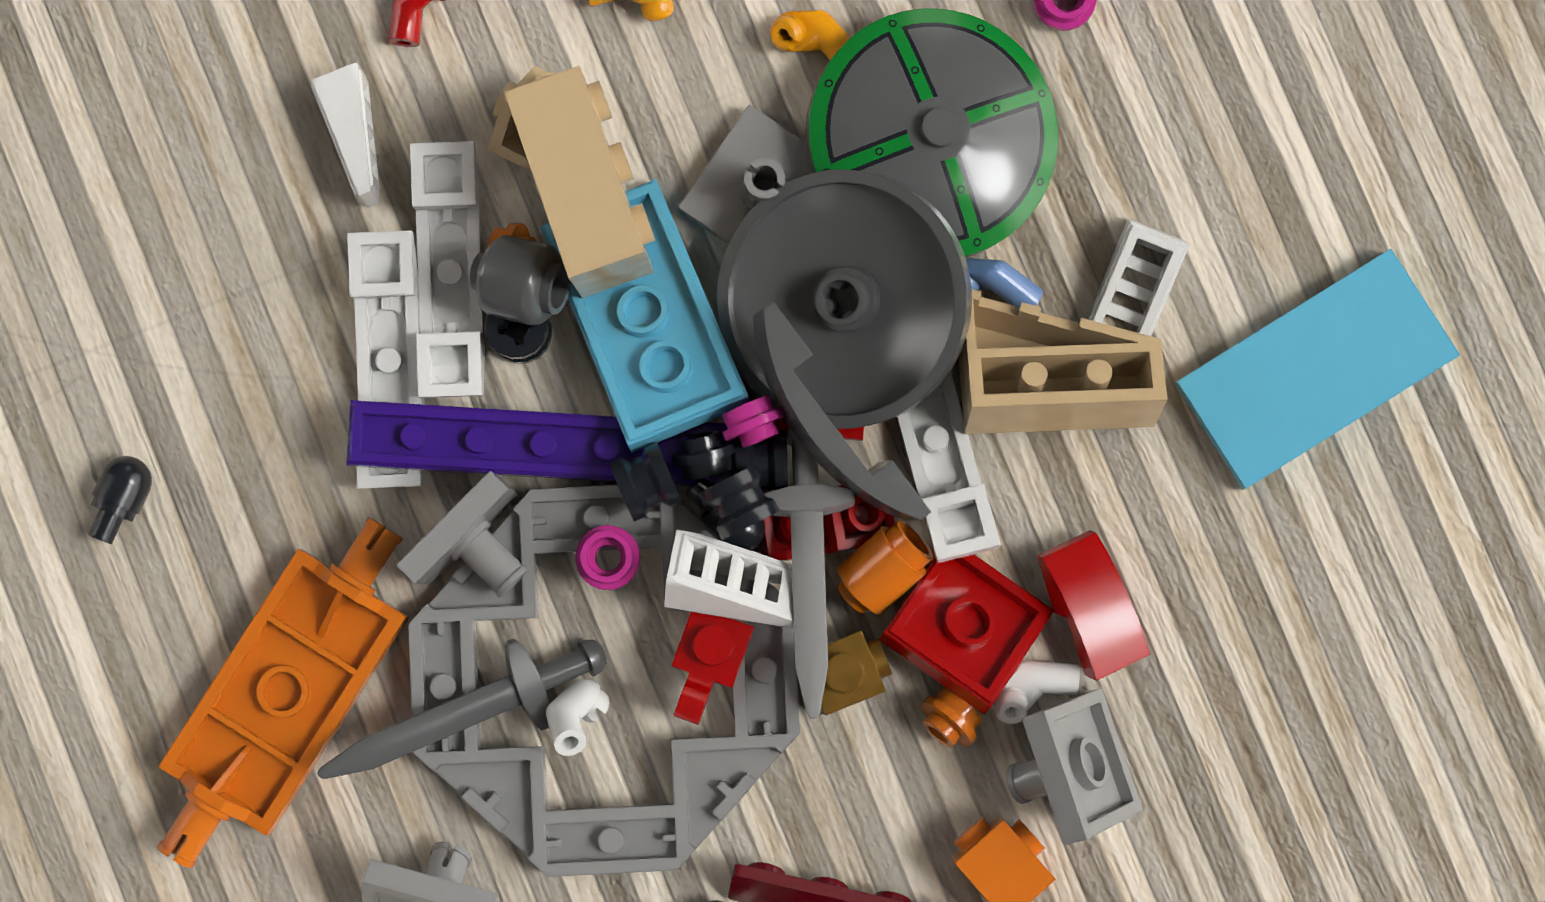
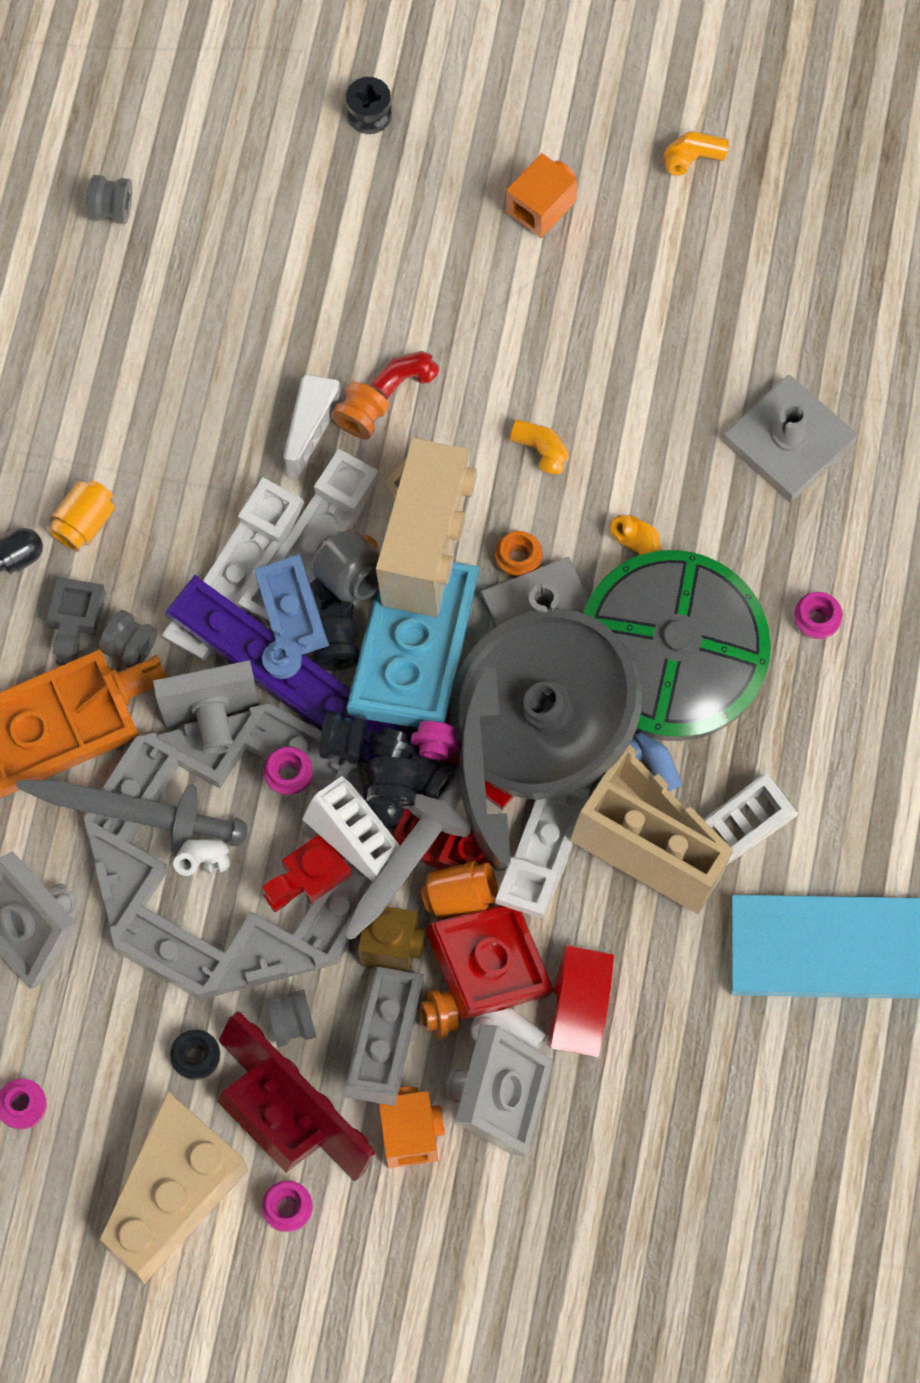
camera: 30 degrees right, 15 degrees down
(167, 402) = (81, 514): none -> light orange brick
(236, 521) = (73, 611): none -> dark grey plate
(320, 516) = (127, 639): none -> dark grey wheel
(399, 79) = (359, 410): none -> orange wheel
(492, 377) = (291, 616): none -> medium blue hinge
(555, 373) = (341, 651): none -> black wheel
(689, 117) = (518, 542): none -> orange plate
(793, 829) = (290, 1018): none -> dark grey wheel
(912, 786) = (384, 1036): none -> light grey tile

